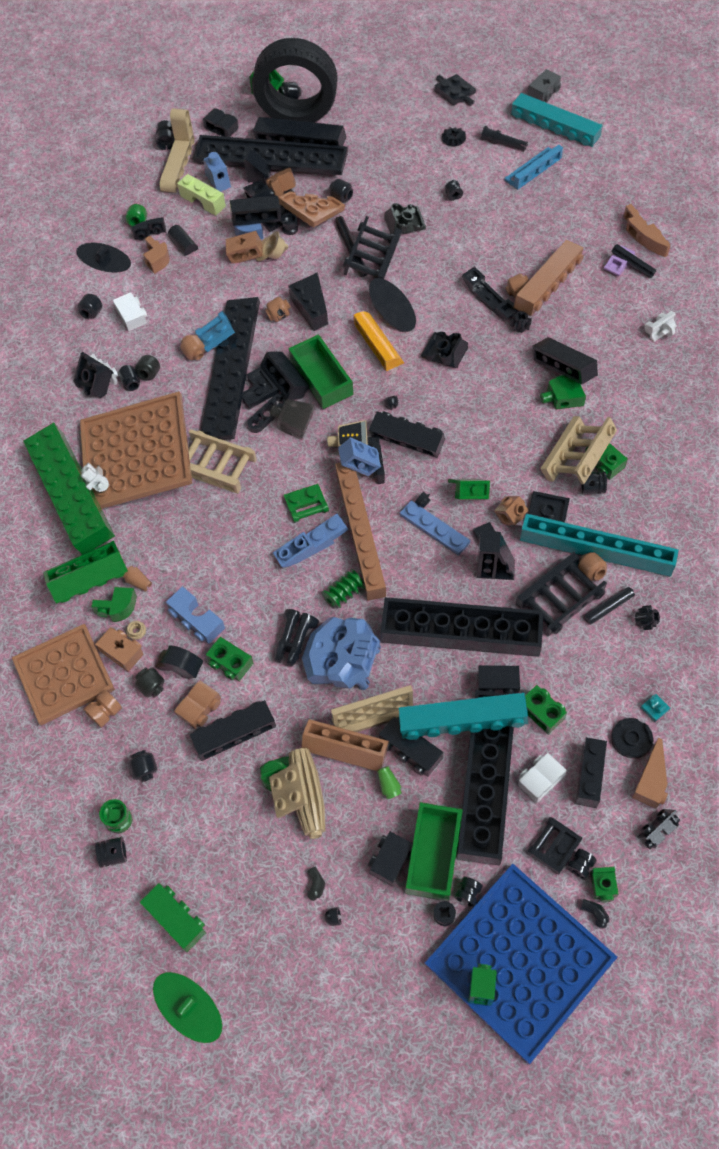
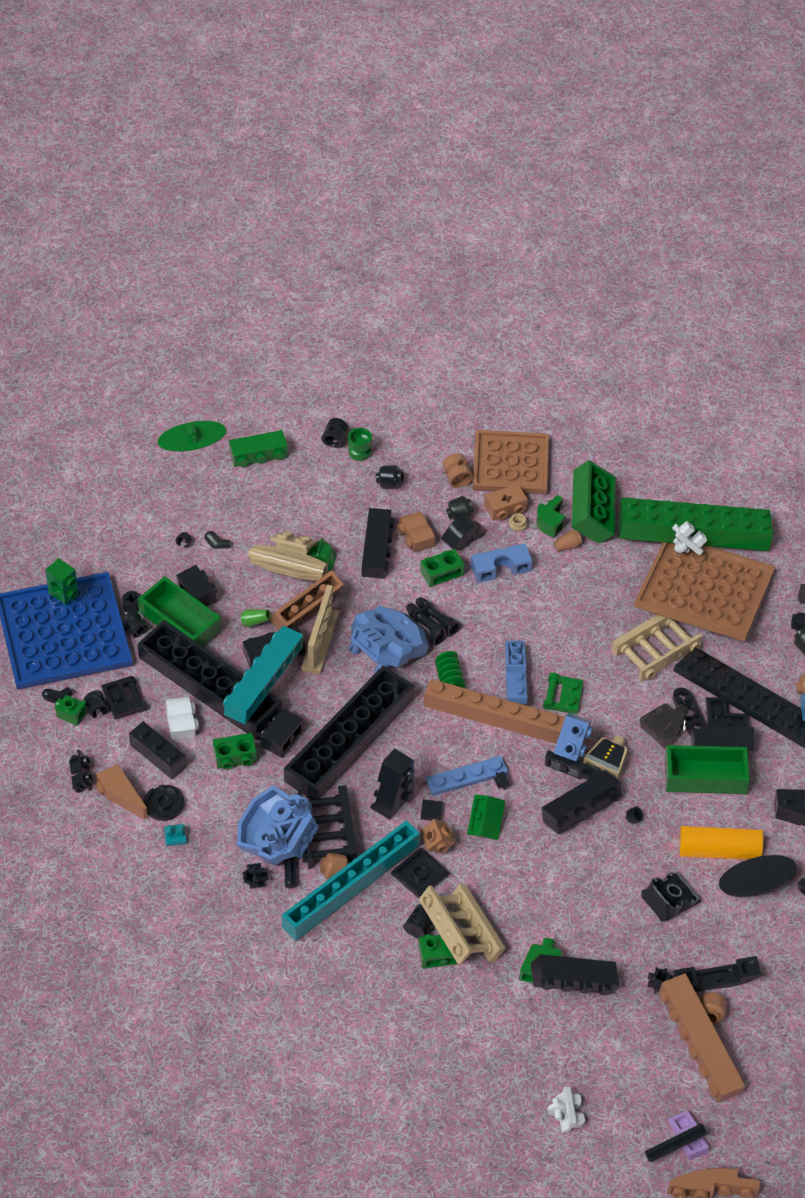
camera: 115 degrees right, 10 degrees down
(596, 638) = (287, 832): none -> medium blue brick

